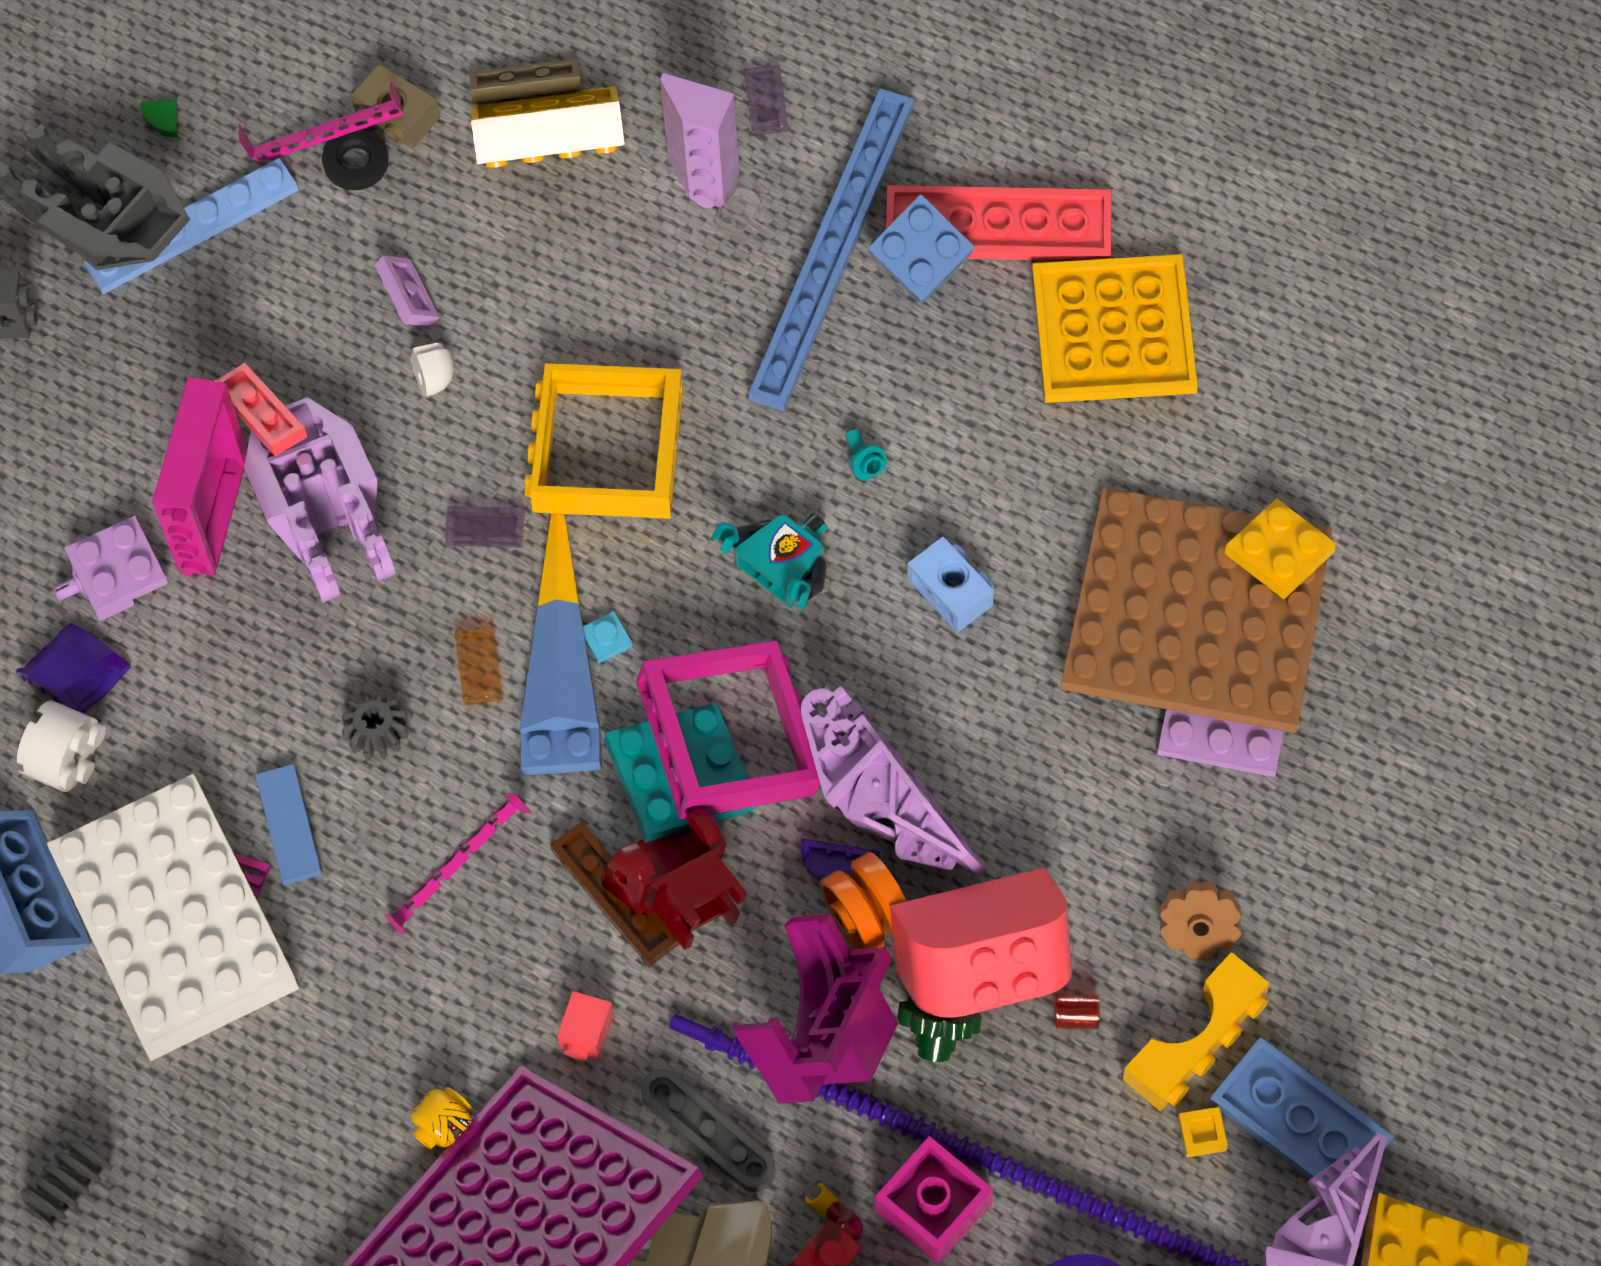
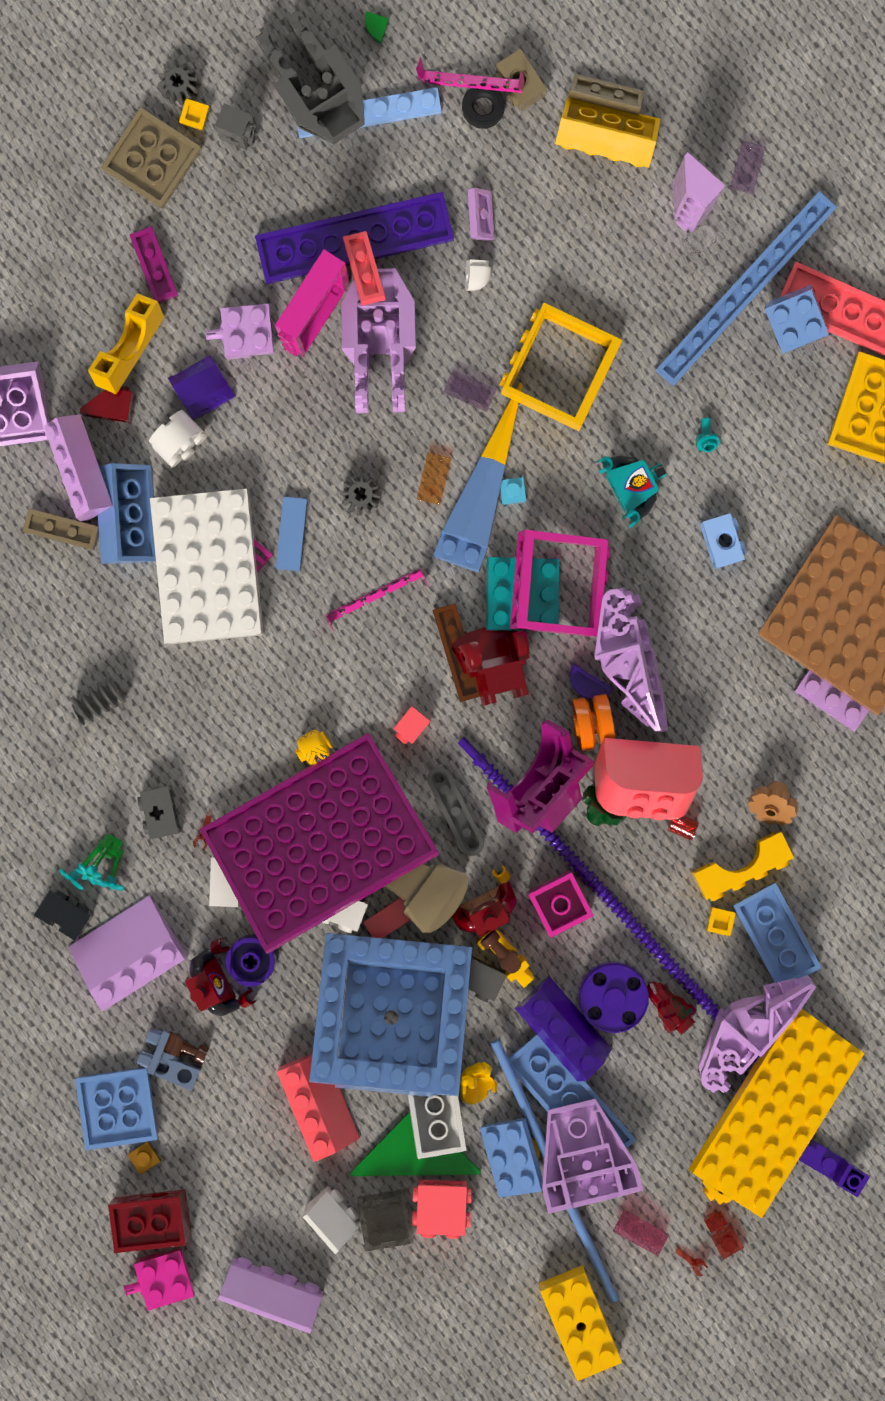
camera: 20 degrees right, 25 degrees up
(282, 354) = (389, 228): none -> dark purple plate

